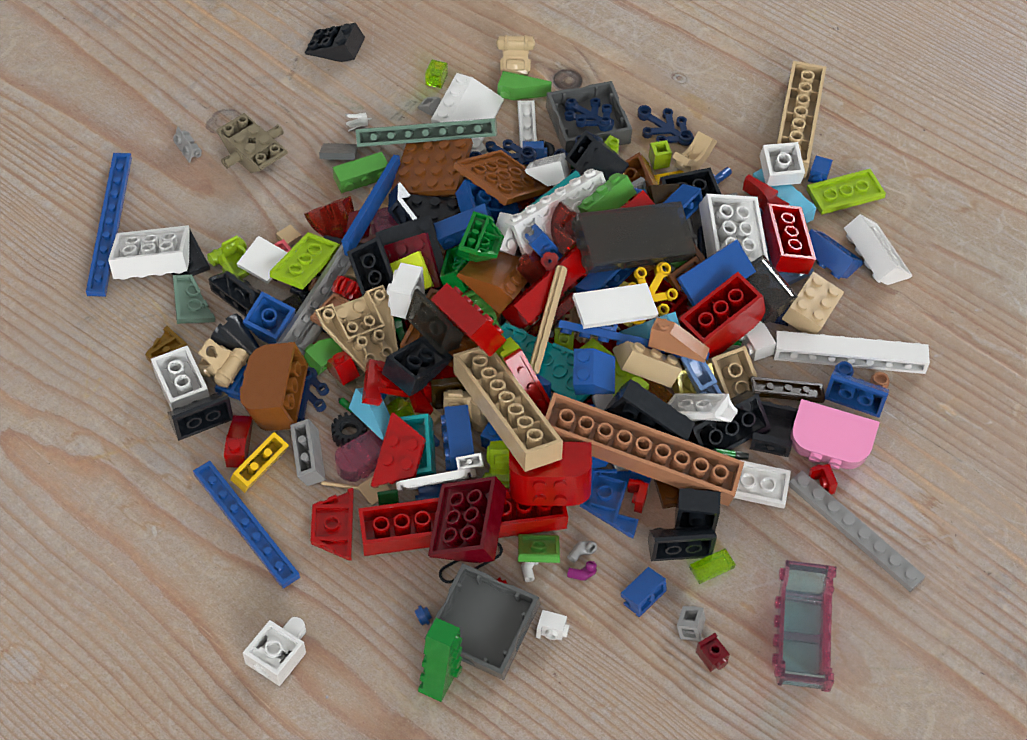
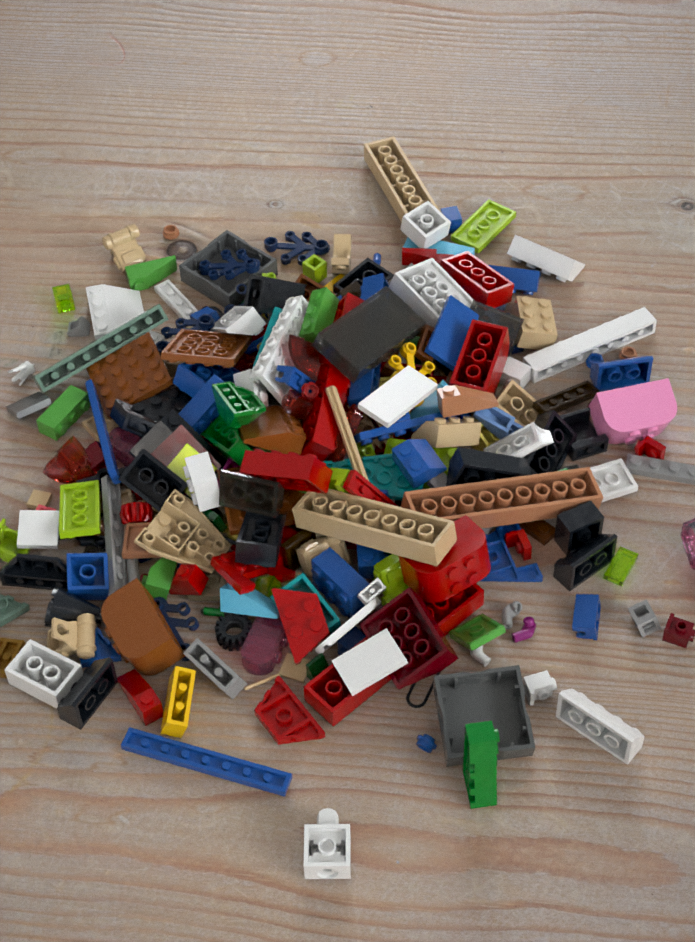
camera: 30 degrees left, 5 degrees down
(421, 520) = (369, 662): none -> white tile
(569, 59) = (170, 232): none -> nougat plate
(575, 689) = (599, 725): none -> white slope

